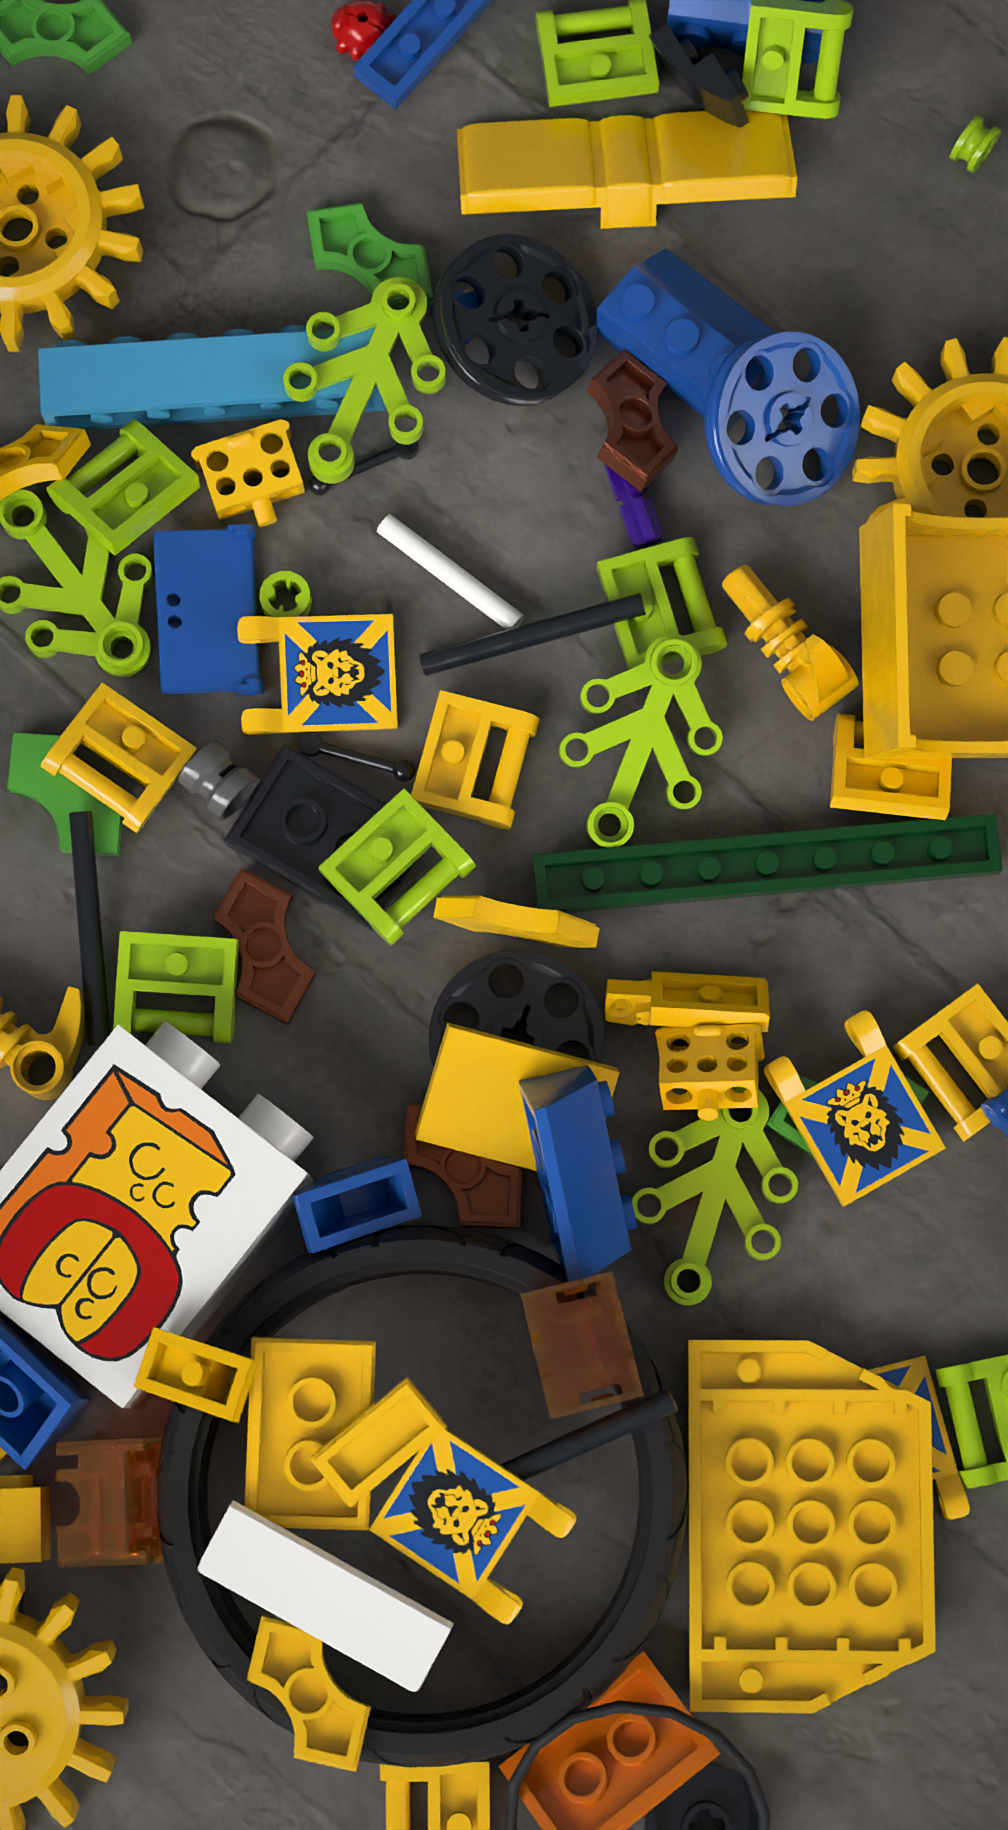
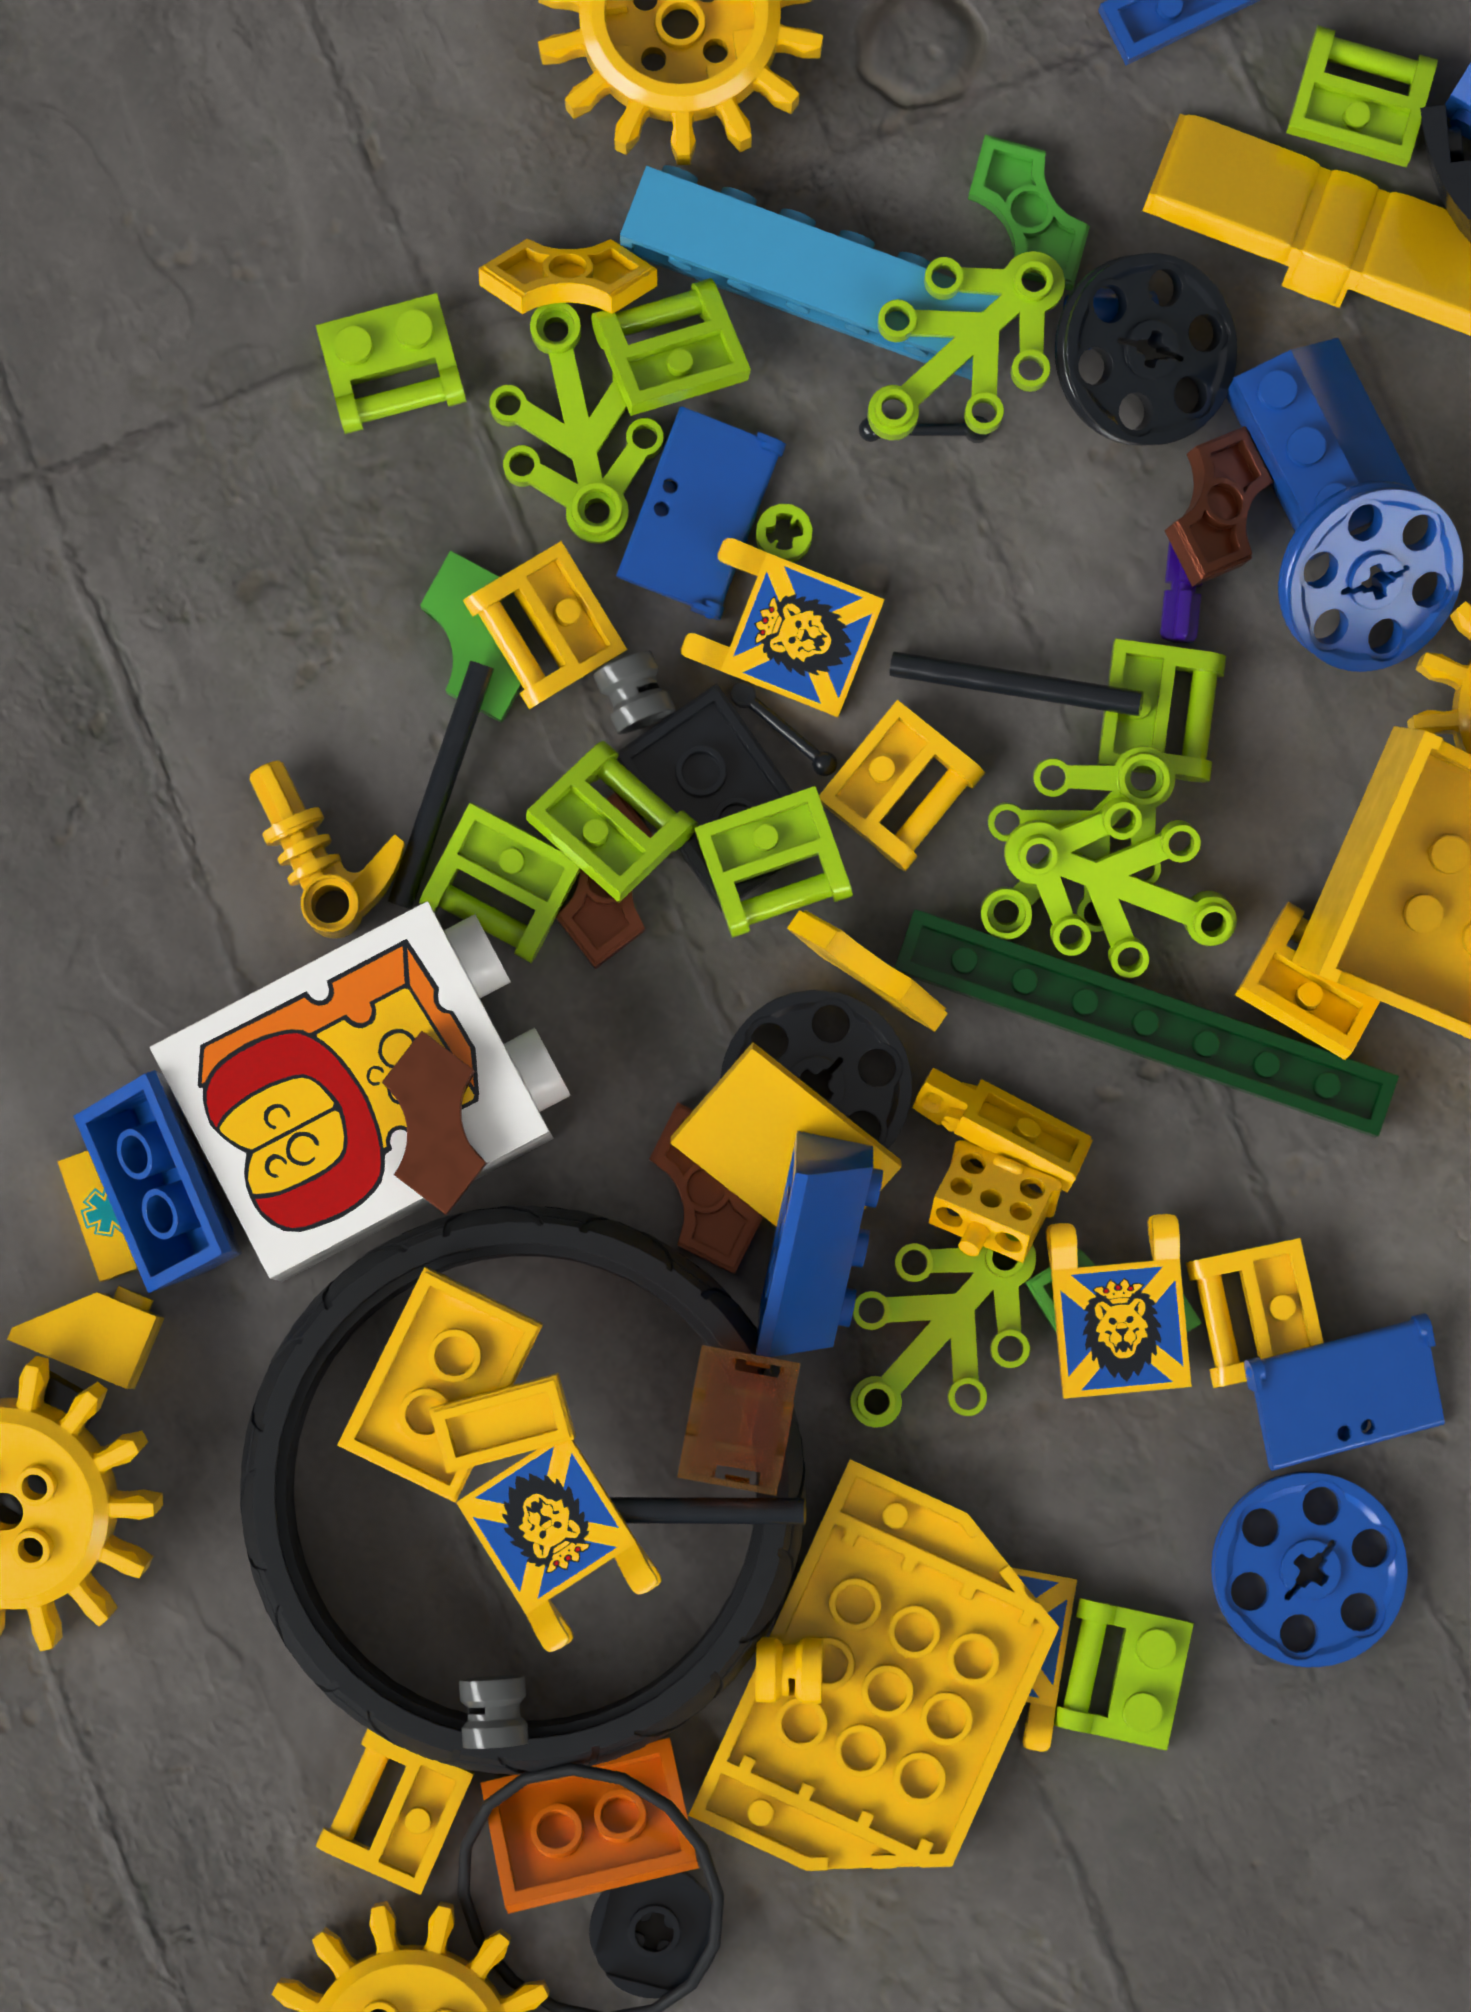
camera: 20 degrees right, 5 degrees up
(116, 1503) = (224, 1365): clear orange piece -> none
(191, 1184) = (431, 1093): none -> copper tile
(196, 1374) = (355, 1279): yellow slope -> none
(239, 908) = (601, 836): none -> lime plate
(246, 456) = (808, 368): yellow piece -> none
(324, 1596) = (385, 1546): white slope -> none
(324, 1717) = (334, 1660): yellow tile -> none
(356, 1202) = (584, 1178): blue slope -> none
(449, 573) = (962, 581): white bar -> none
(483, 1699) = (493, 1712): none -> dark grey wheel
(683, 758) = (1111, 880): none -> lime plant
(720, 1544) = (789, 1670): none -> yellow wheel
(817, 670) = (1284, 854): yellow piece -> none

